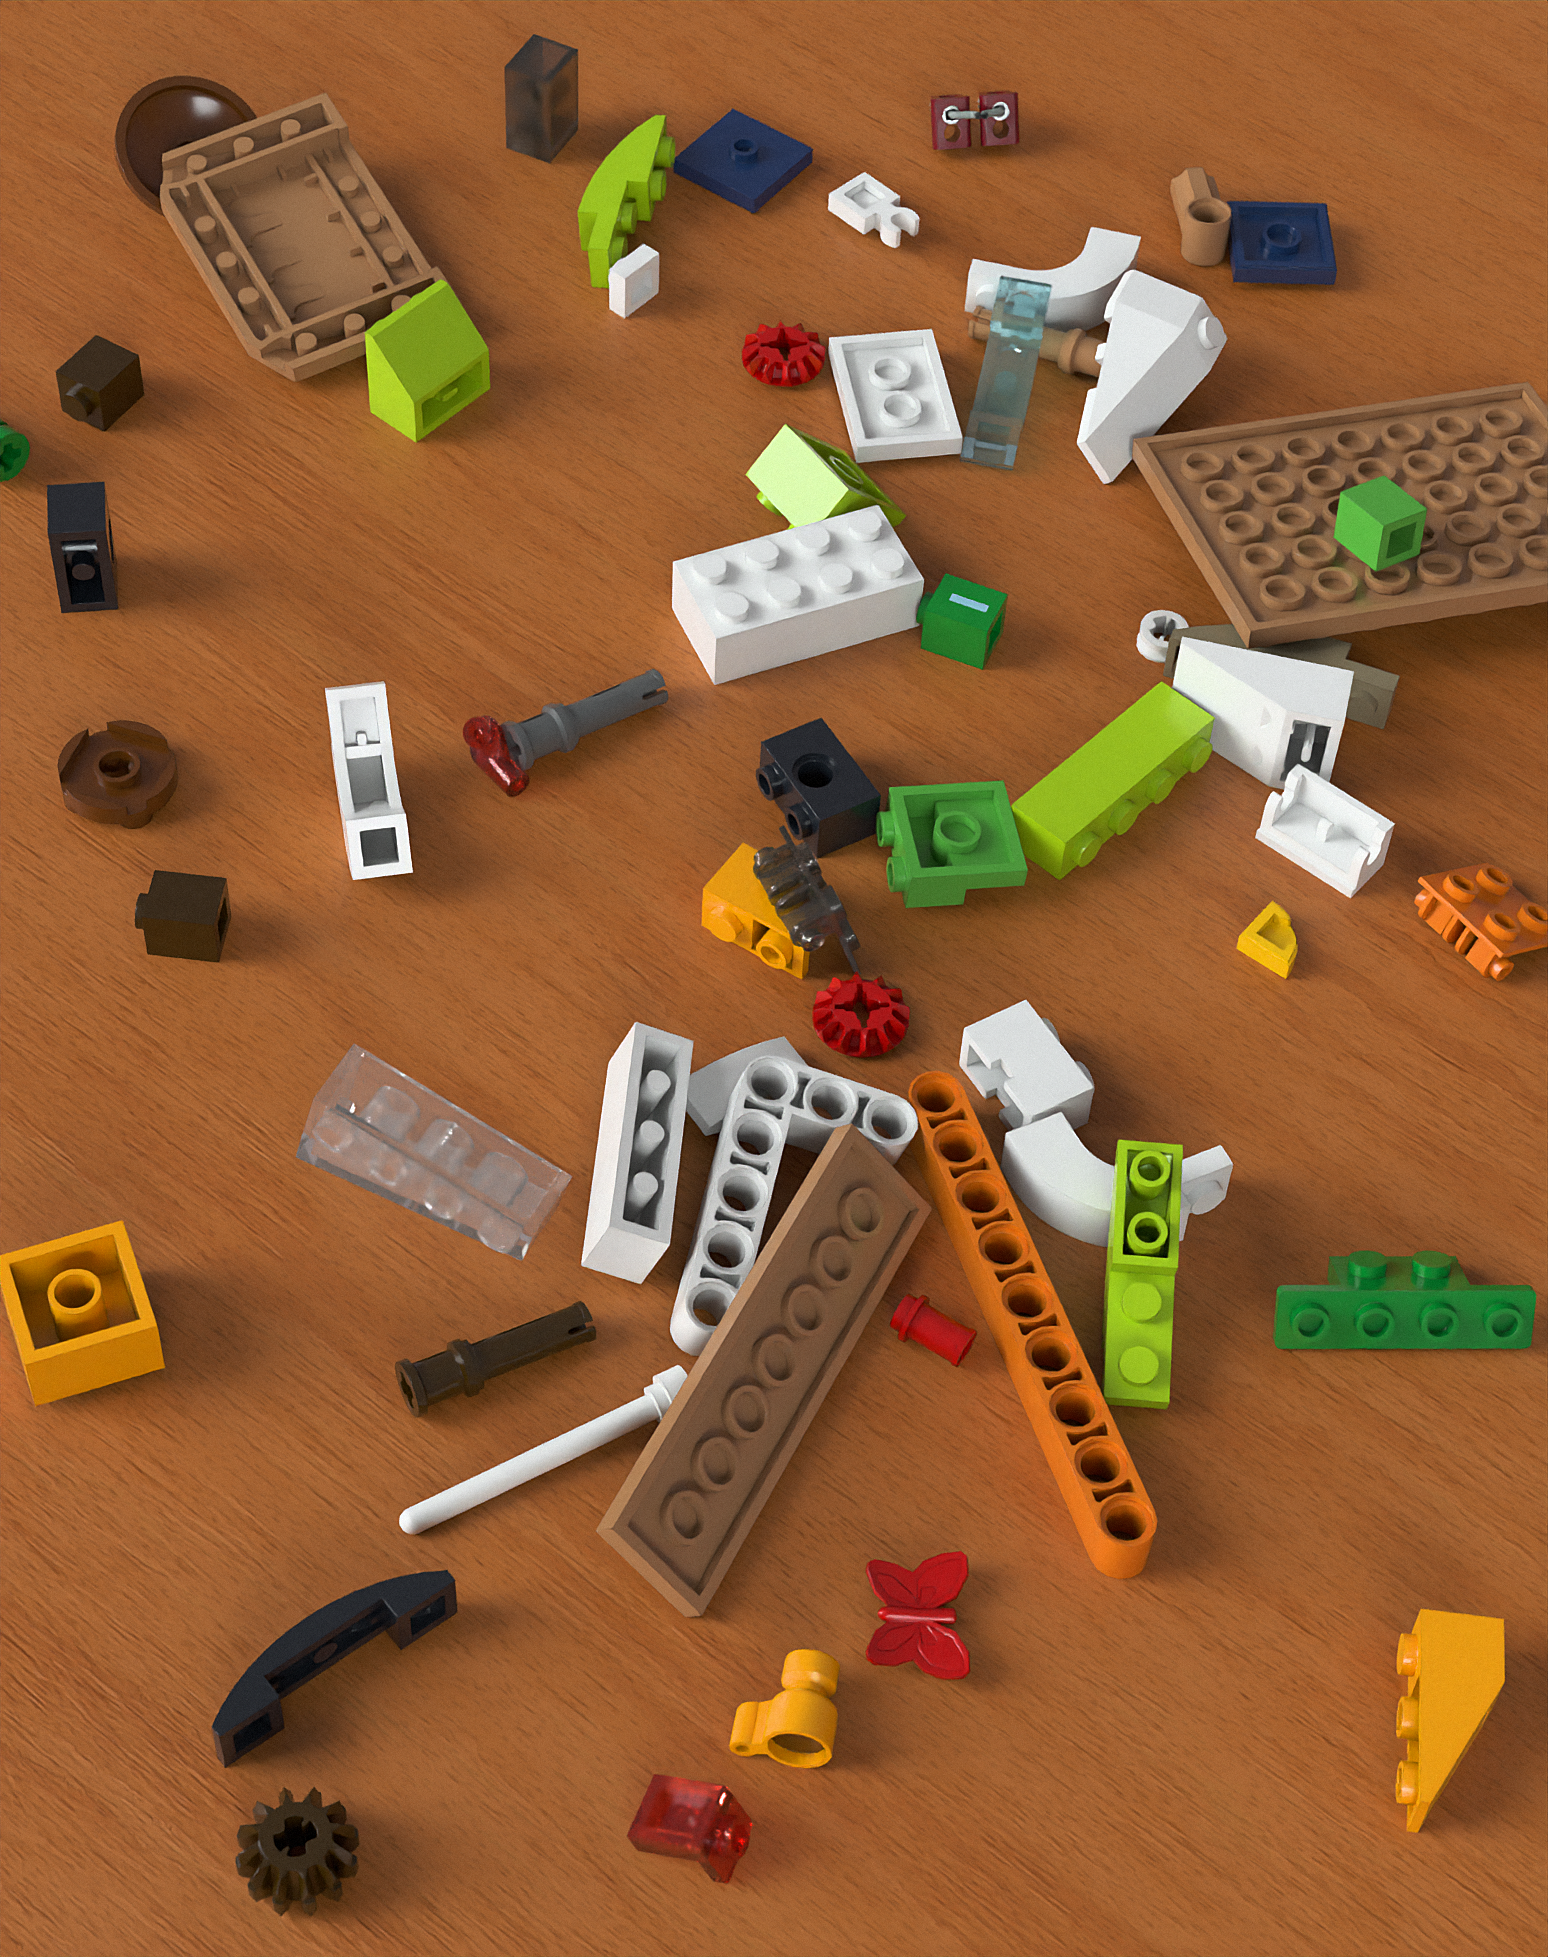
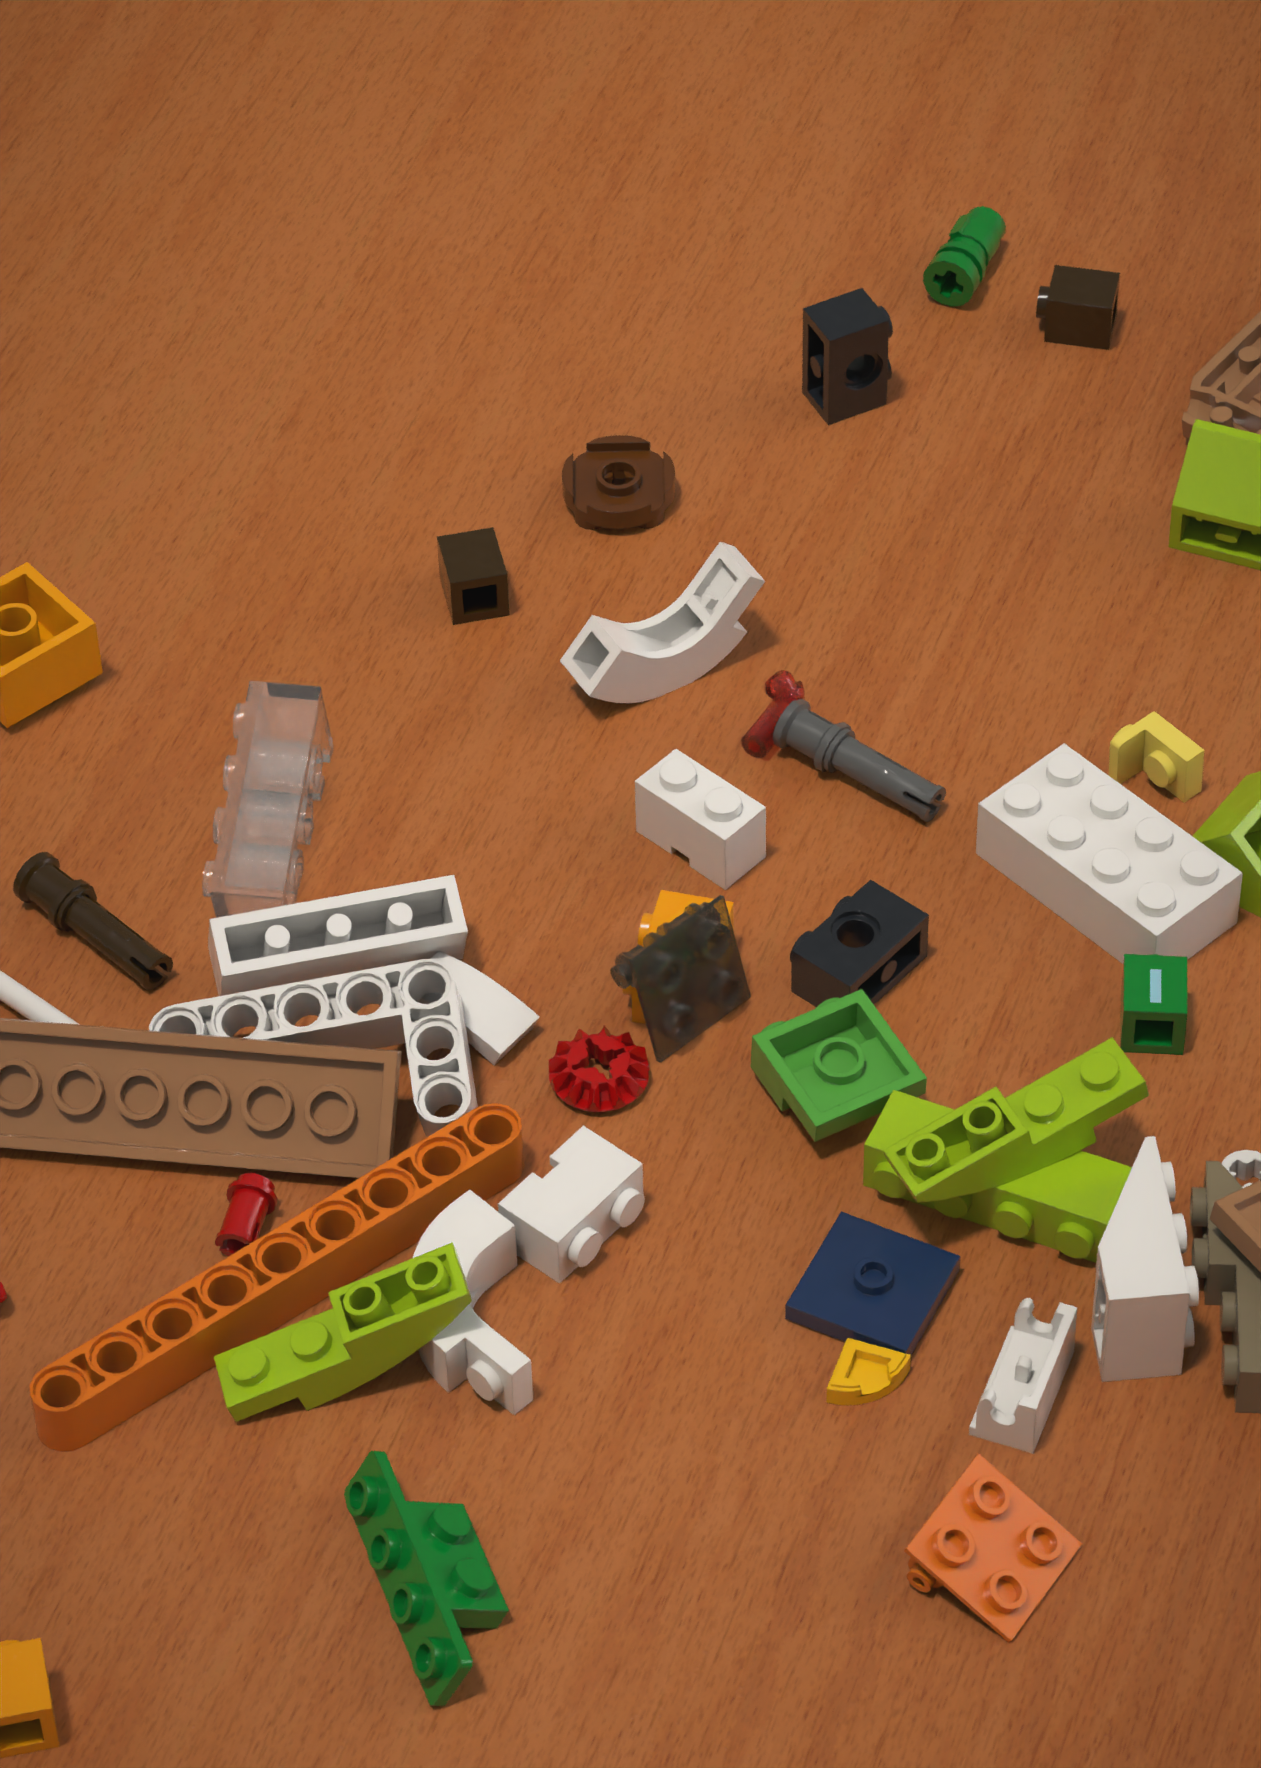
camera: 75 degrees right, 5 degrees down
(607, 841) = (702, 817): none -> white brick
(686, 520) = (1161, 752): none -> light yellow bracket
(1113, 725) = (1016, 1135): none -> lime slope
(1184, 904) = (872, 1285): none -> dark blue plate

